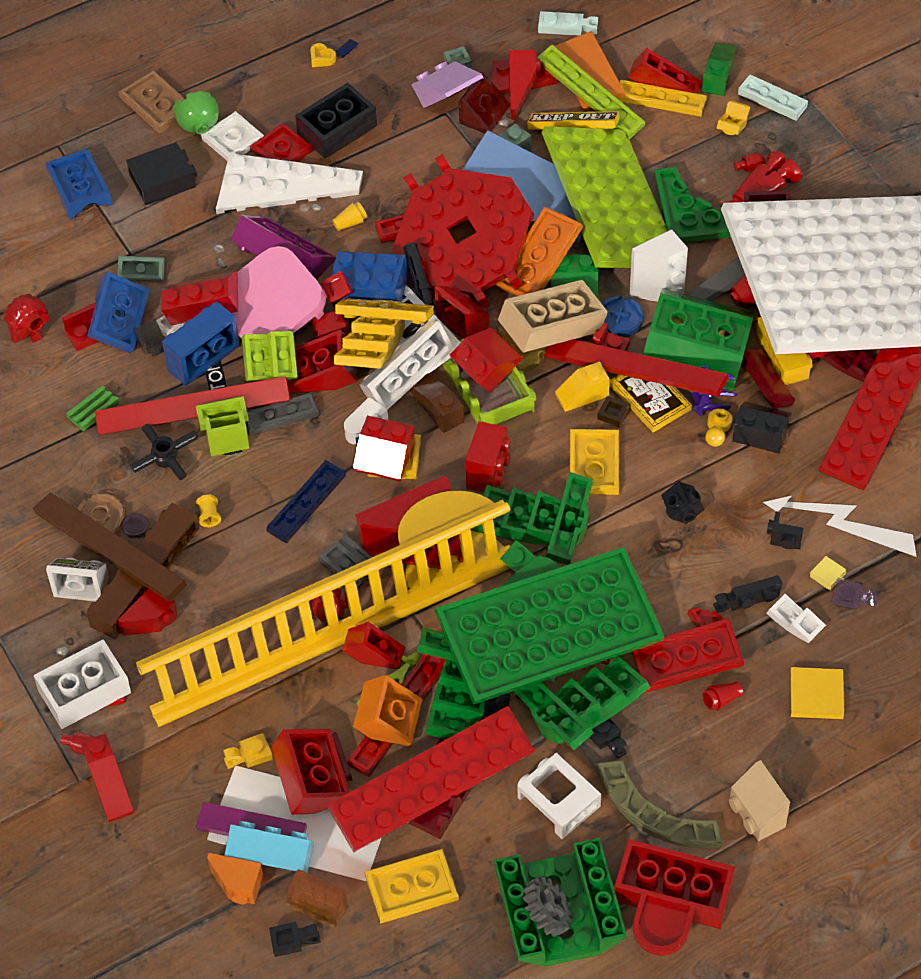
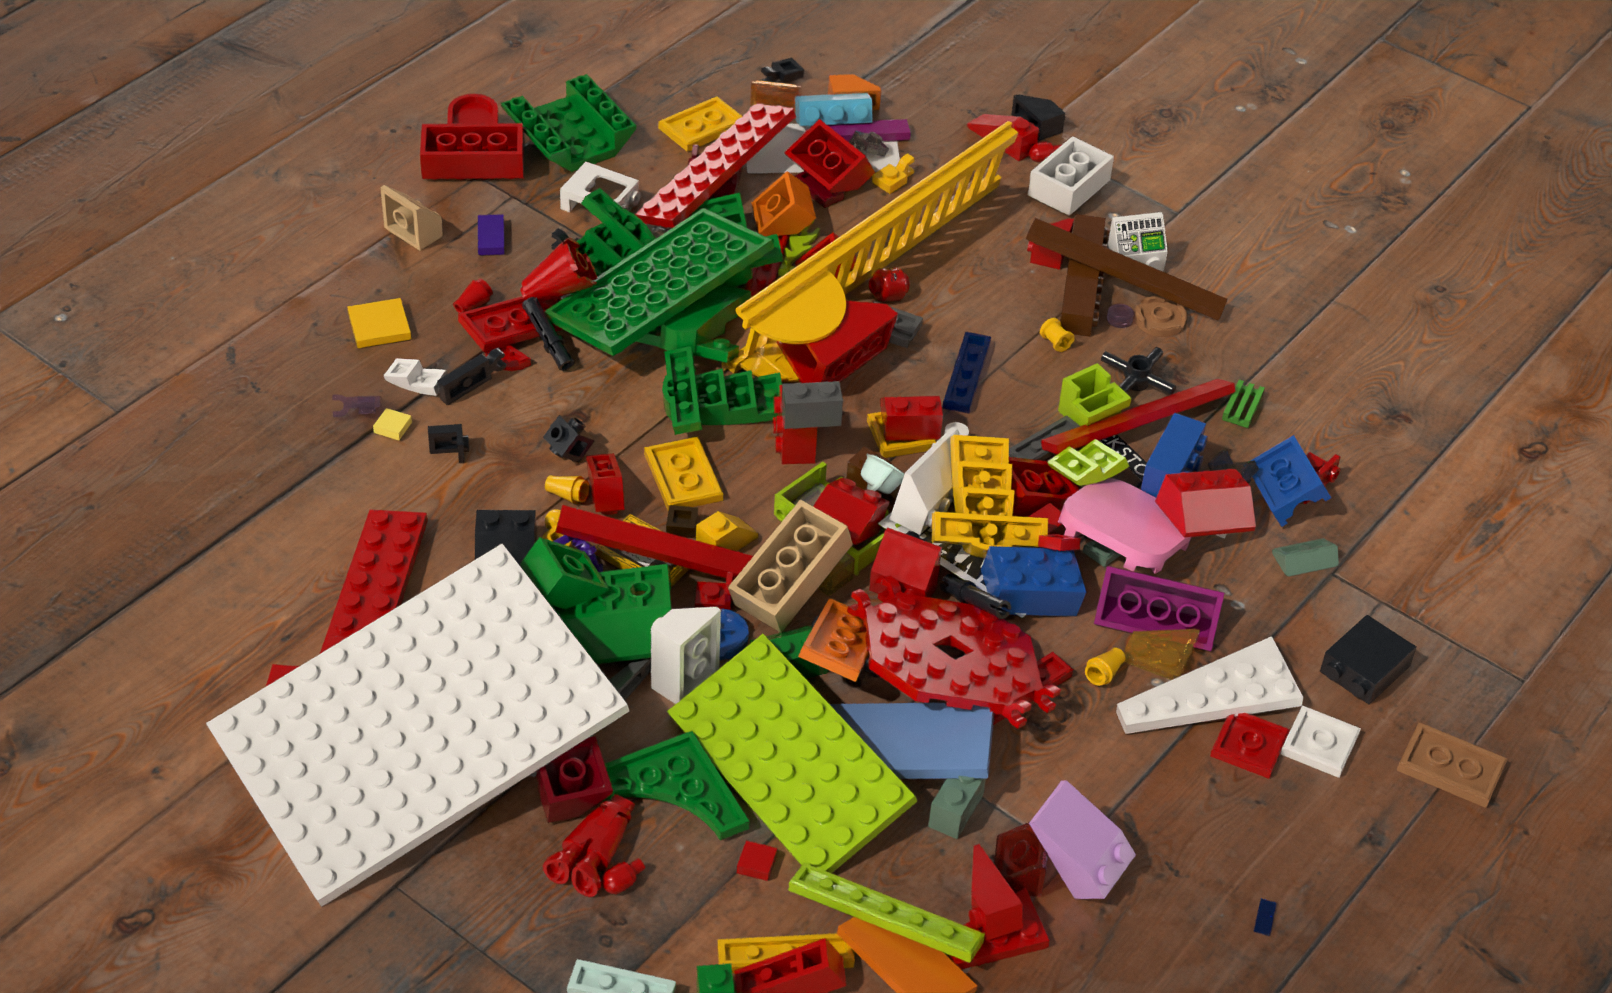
camera: 155 degrees right, 10 degrees down
(25, 318) = (1380, 451): red animal -> none
(56, 787) = (1040, 113): none -> black slope
(78, 182) = (1440, 608): blue piece -> none
(196, 112) = (1380, 734): bright green cylinder -> none
(259, 792) = (869, 143): none -> clear smoke bracket
(302, 217) = (1161, 651): none -> clear yellow wing
(322, 56) = (1289, 891): yellow tile -> none
(336, 120) = (1200, 774): black brick -> none
(444, 365) = (881, 475): none -> light aqua piece
(459, 55) = (1100, 936): sand green tile -> none
(481, 418) = (811, 405): none -> dark grey brick
(547, 906) = (575, 101): dark grey gear -> none
(593, 120) = (887, 858): tile -> none
(640, 651) = (560, 273): none -> red cone
(652, 819) = (509, 205): olive tile -> none
(656, 154) = (757, 860): none -> red tile
(663, 460) = (605, 483): none -> red slope
(665, 615) = (552, 341): none -> black pin
(682, 780) = (491, 234): none -> dark purple tile
(695, 464) = (570, 488): none -> yellow cone
(733, 336) = (562, 574): none -> green slope
(734, 118) = (667, 928): yellow bracket -> none
(894, 539) = (326, 476): white sticker -> none

